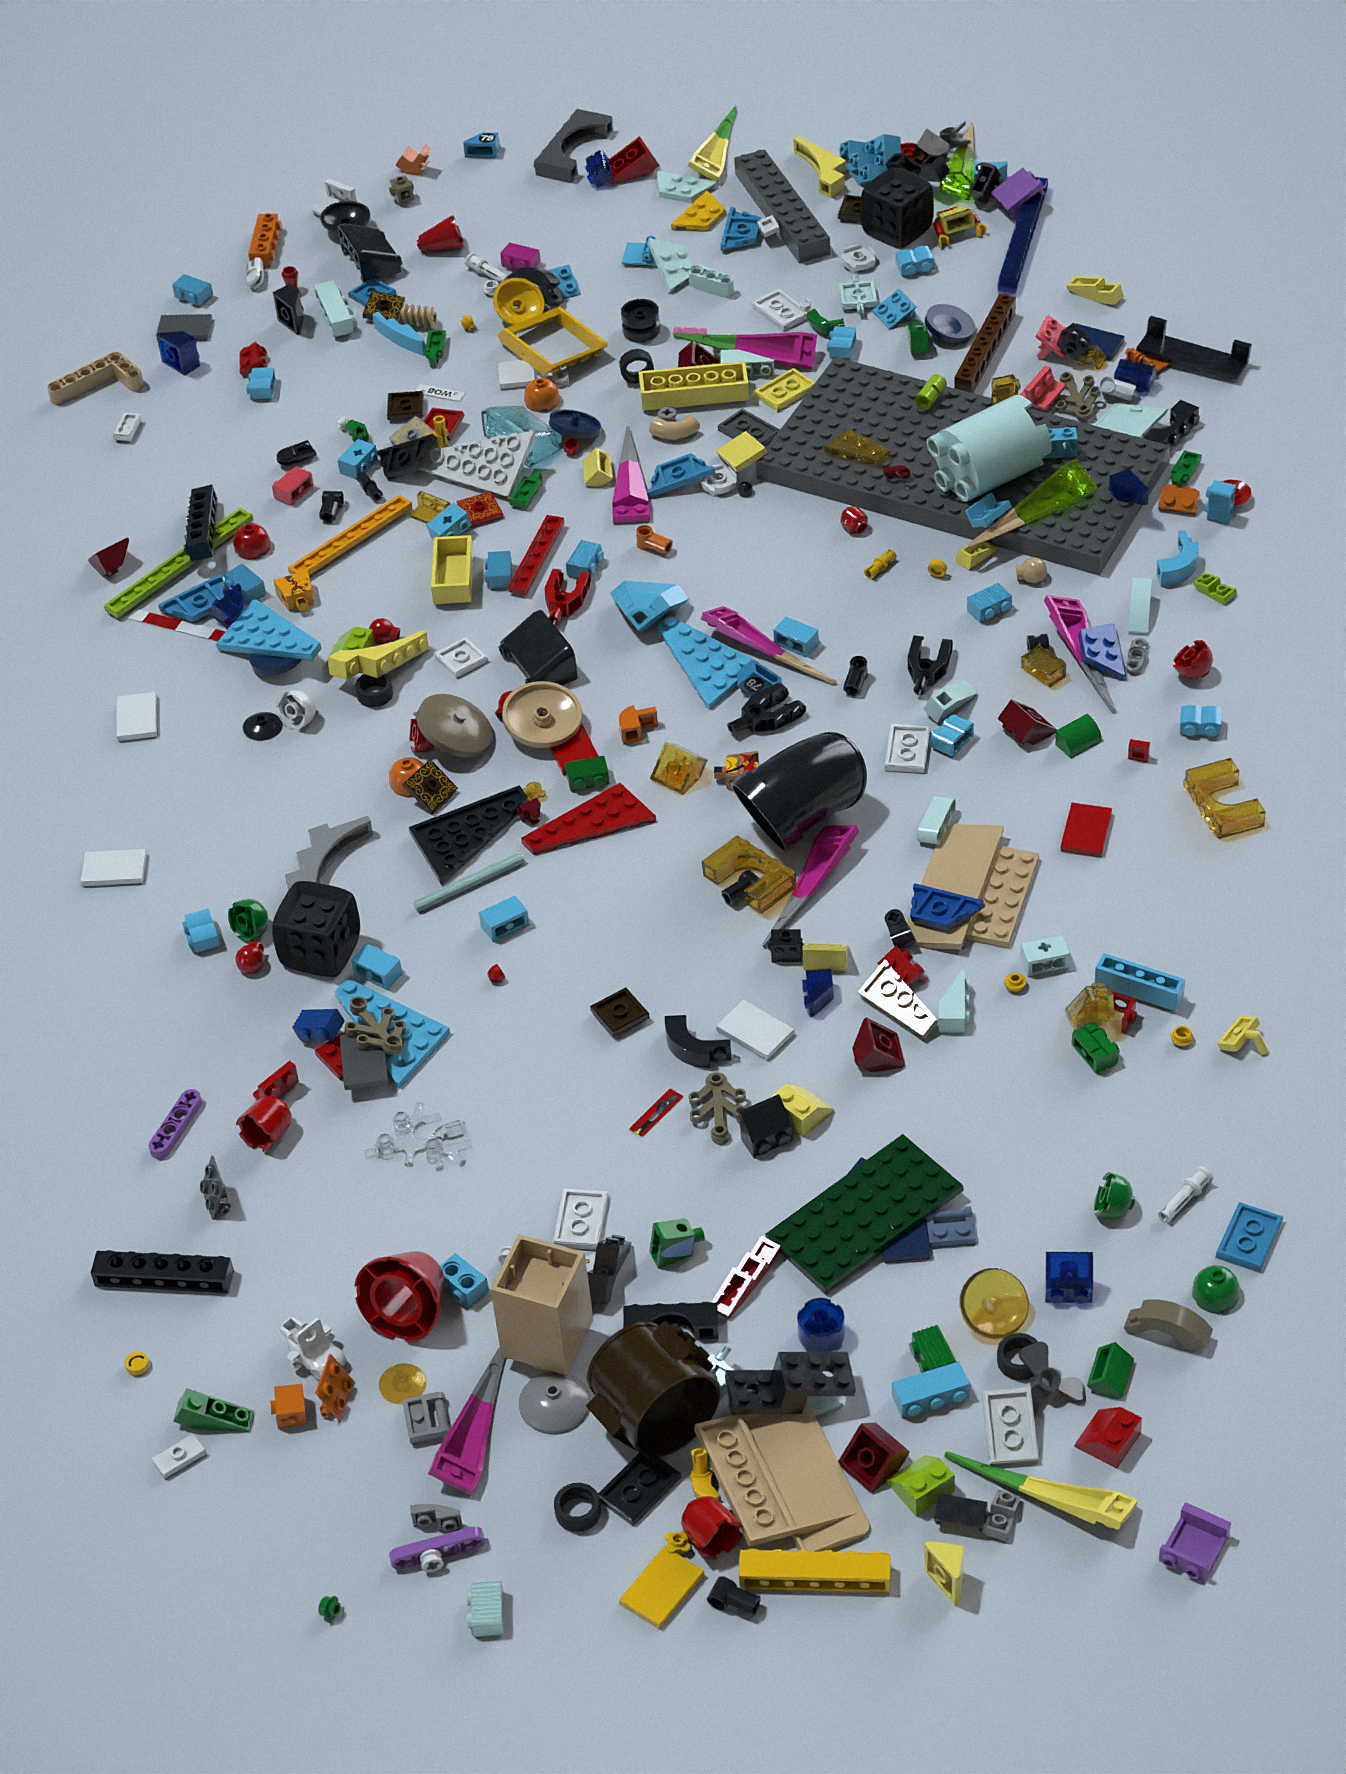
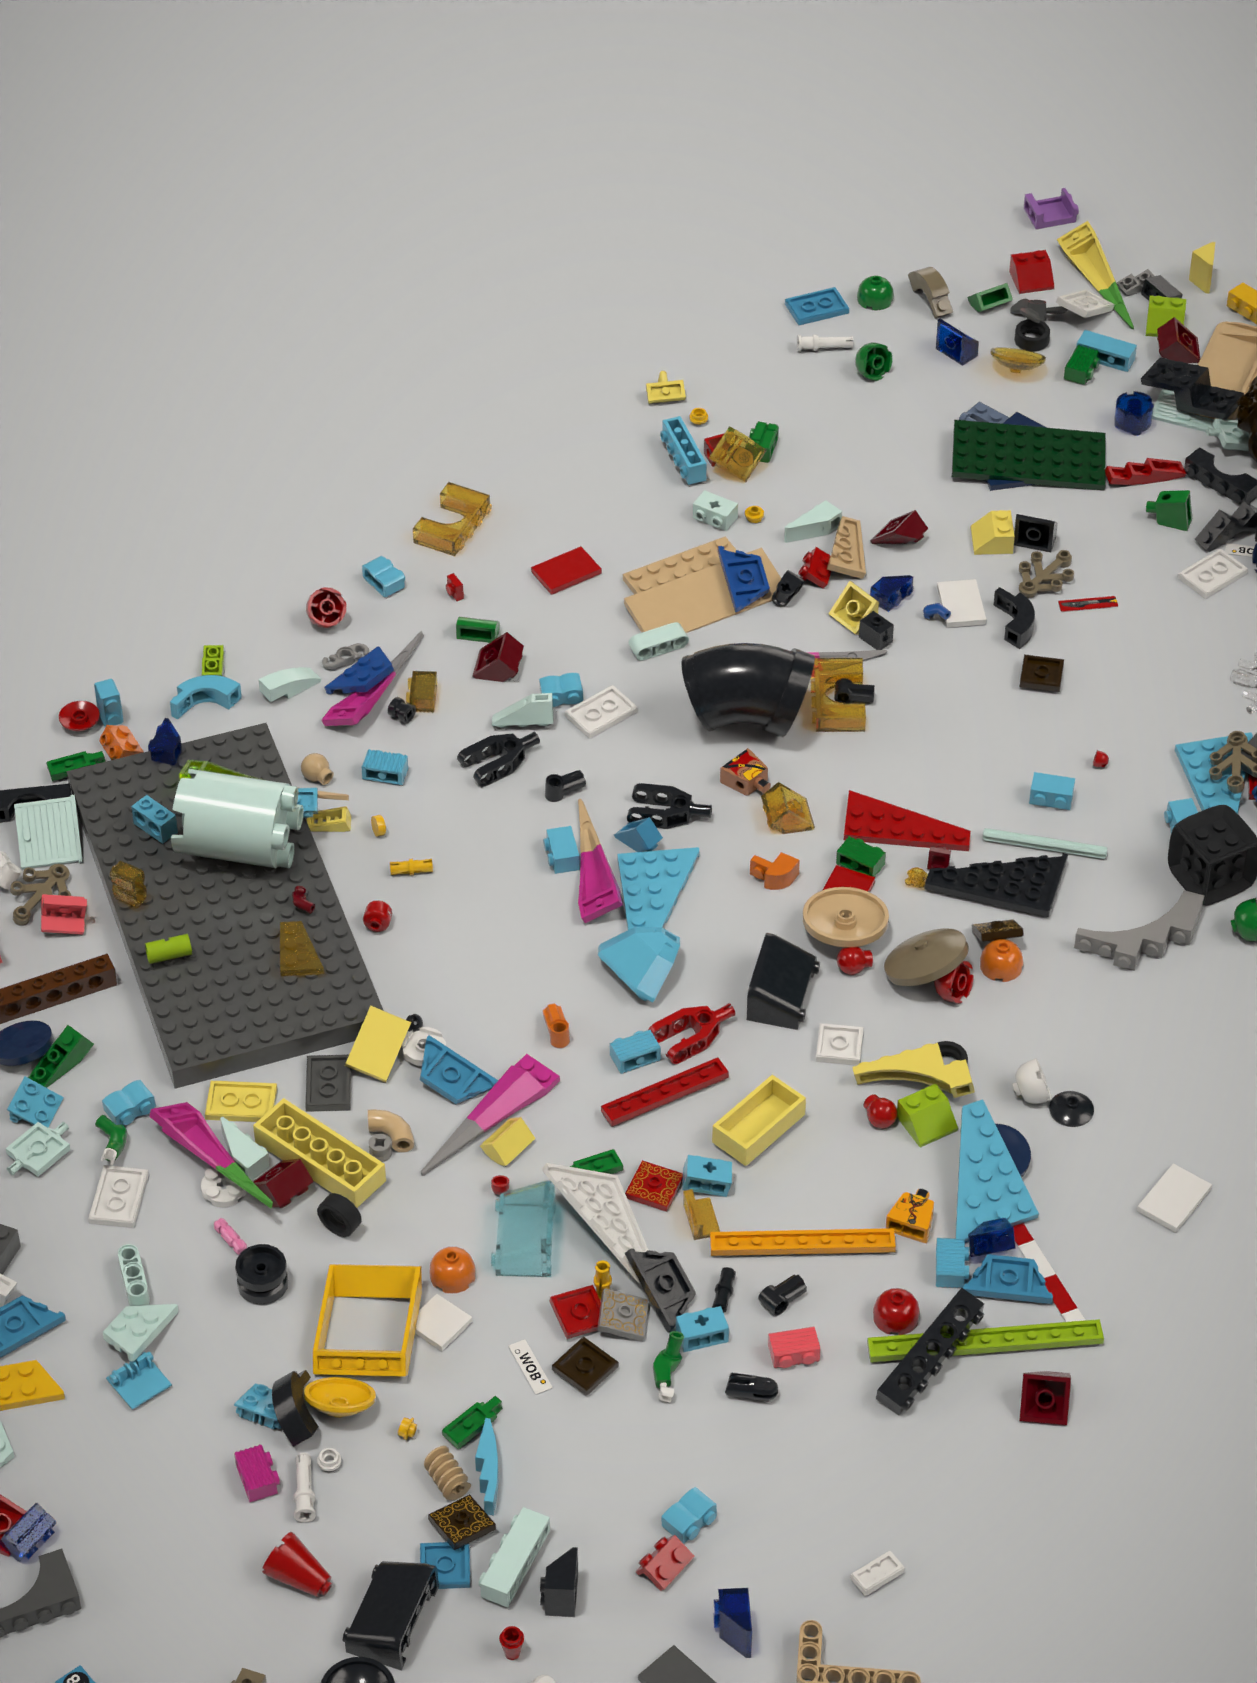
camera: 140 degrees left, 0 degrees up
(499, 569) = (714, 1098): medium azure brick -> none
(574, 424) = (470, 1199): dark blue piece -> none
(766, 999) = (937, 608): none -> blue arm

